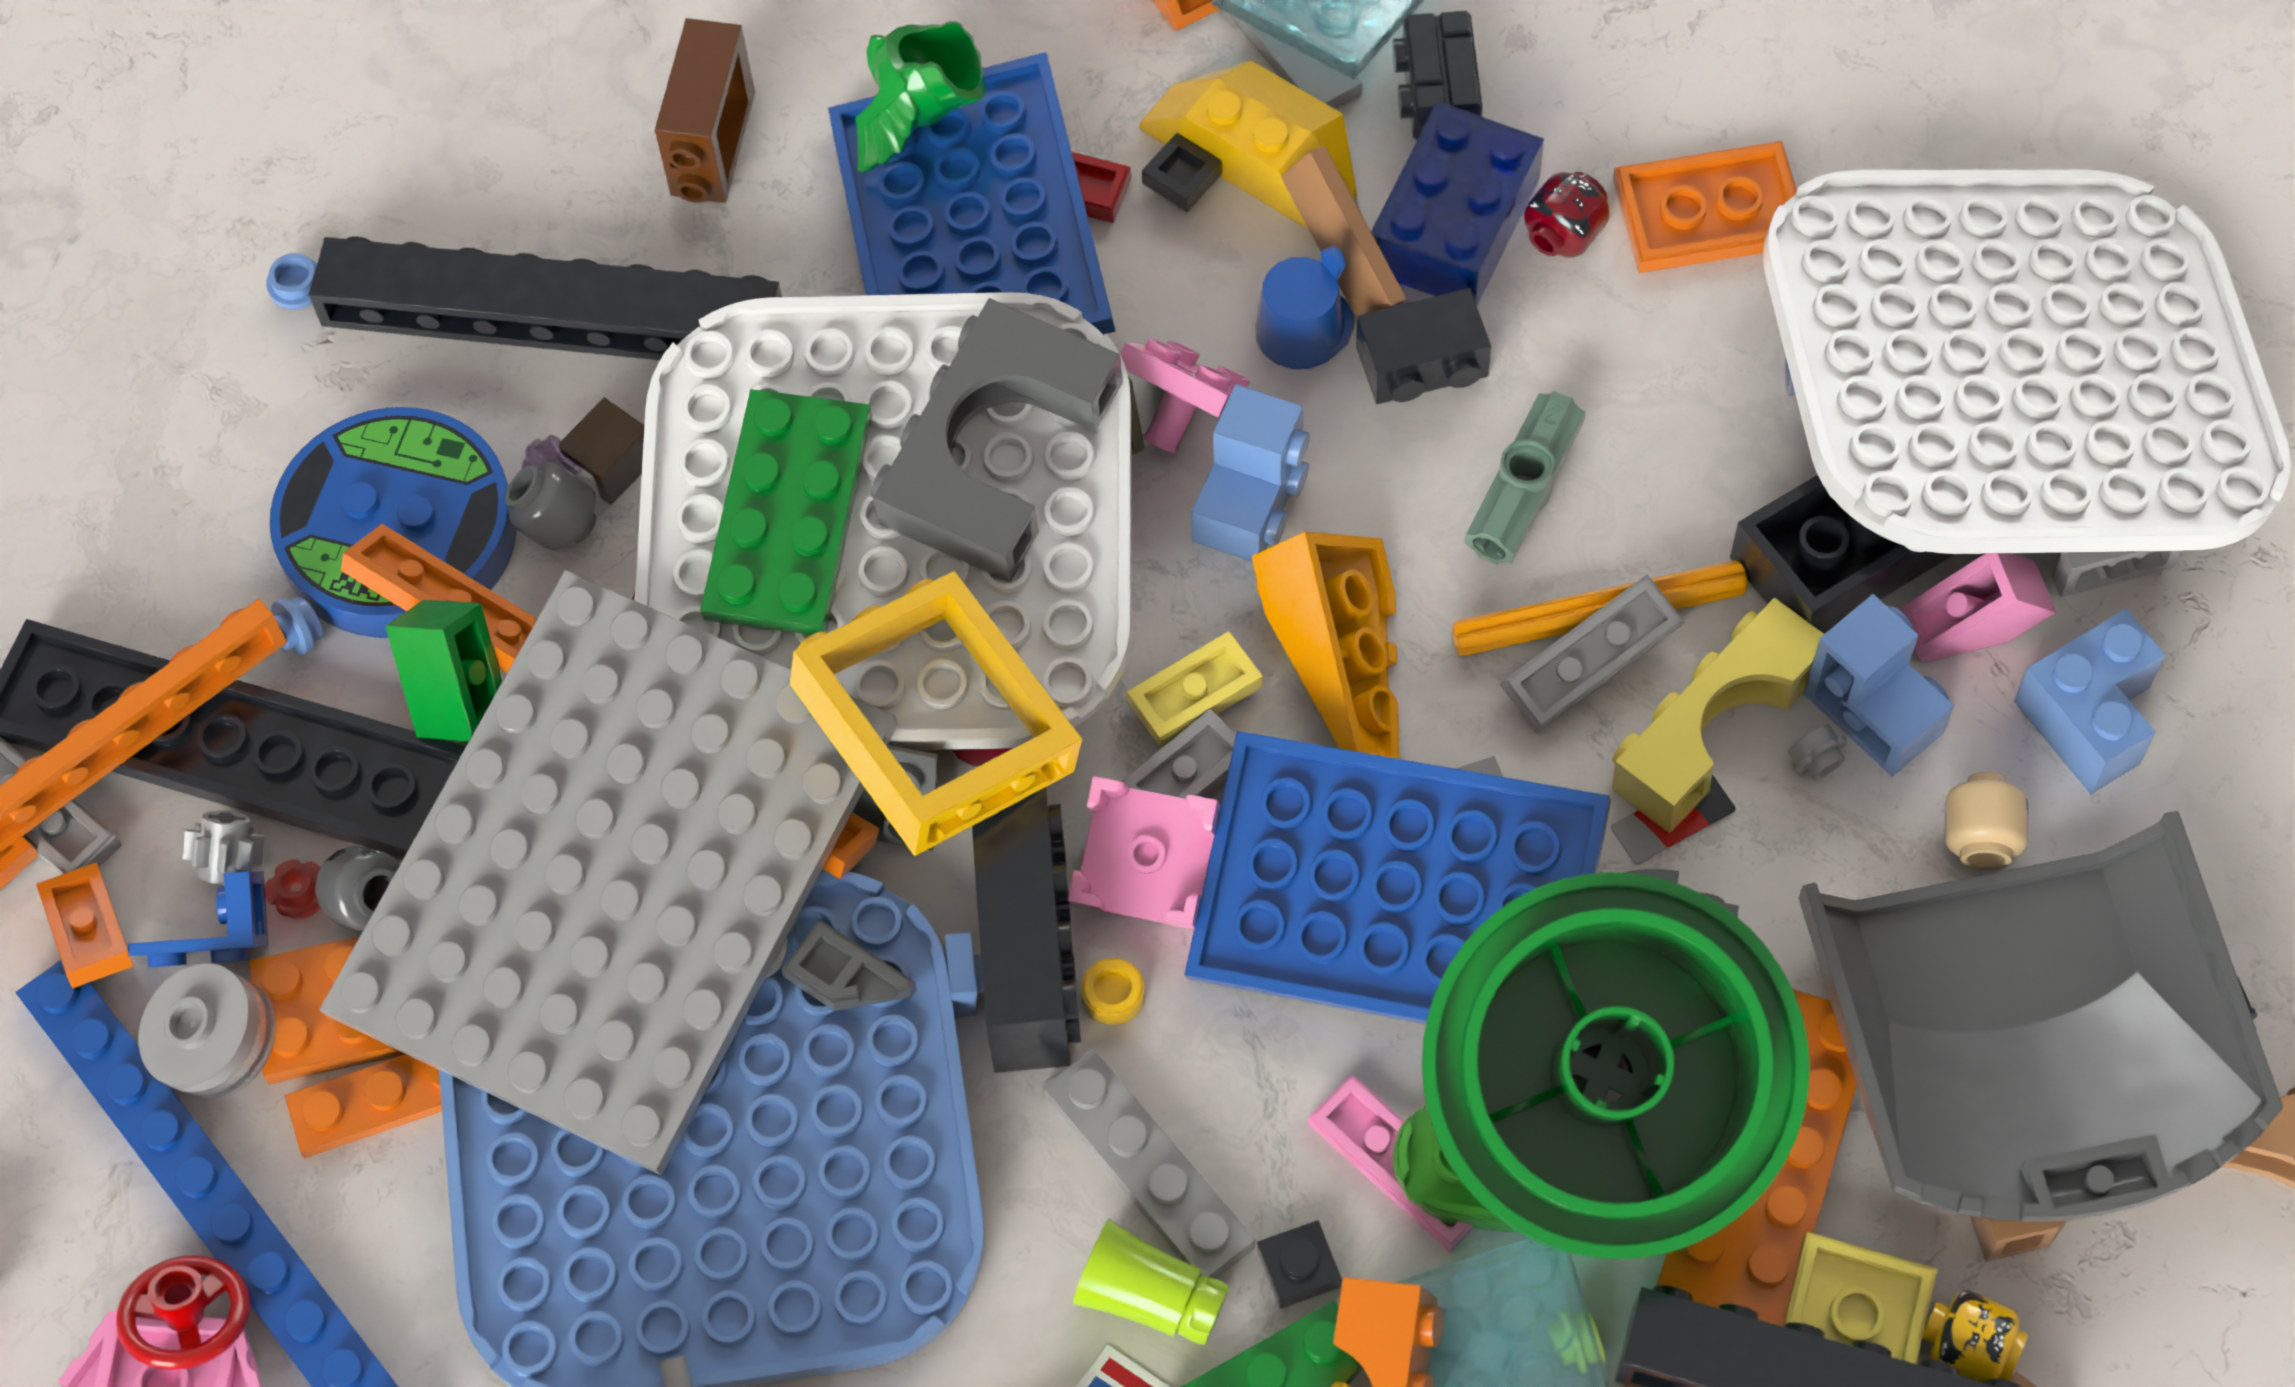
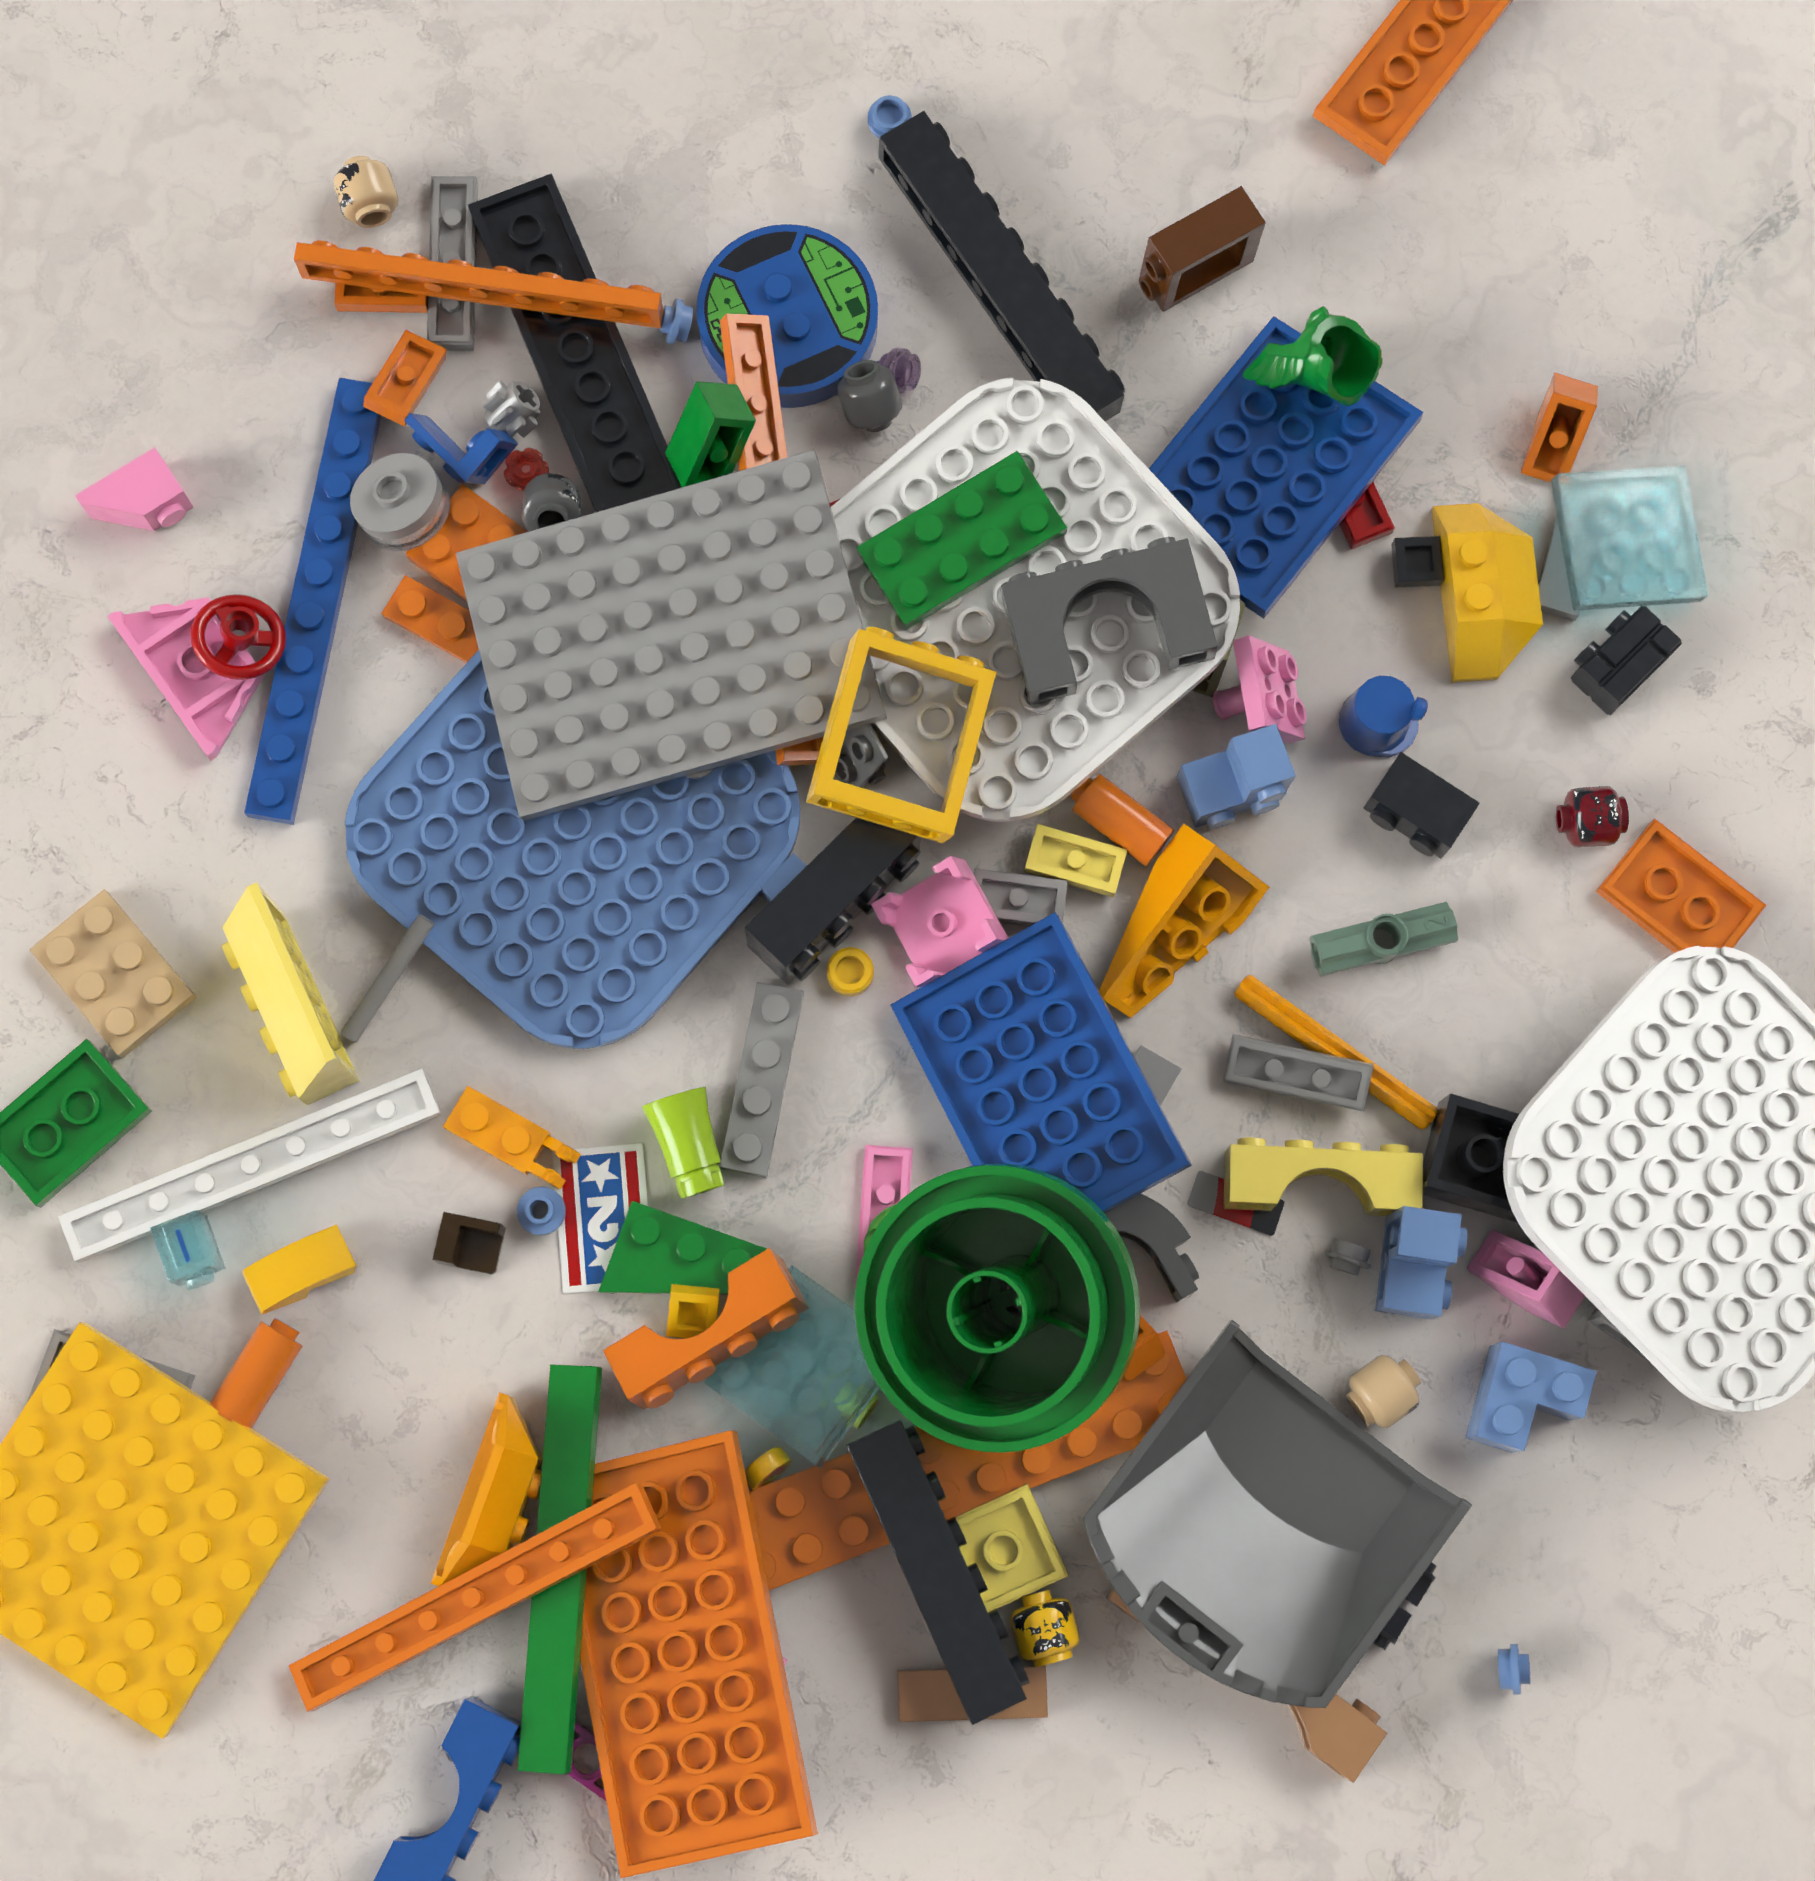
camera: 40 degrees right, 15 degrees up
(608, 448) = (932, 391): dark brown panel -> none
(843, 972) = (723, 815): dark grey tile -> none
(1194, 613) = (1121, 818): none -> orange brick
(1299, 1264) = (774, 1211): black plate -> none
(1339, 223) = (1449, 698): medium nougat tile -> none
(1457, 202) = (1537, 744): clear blue brick -> none

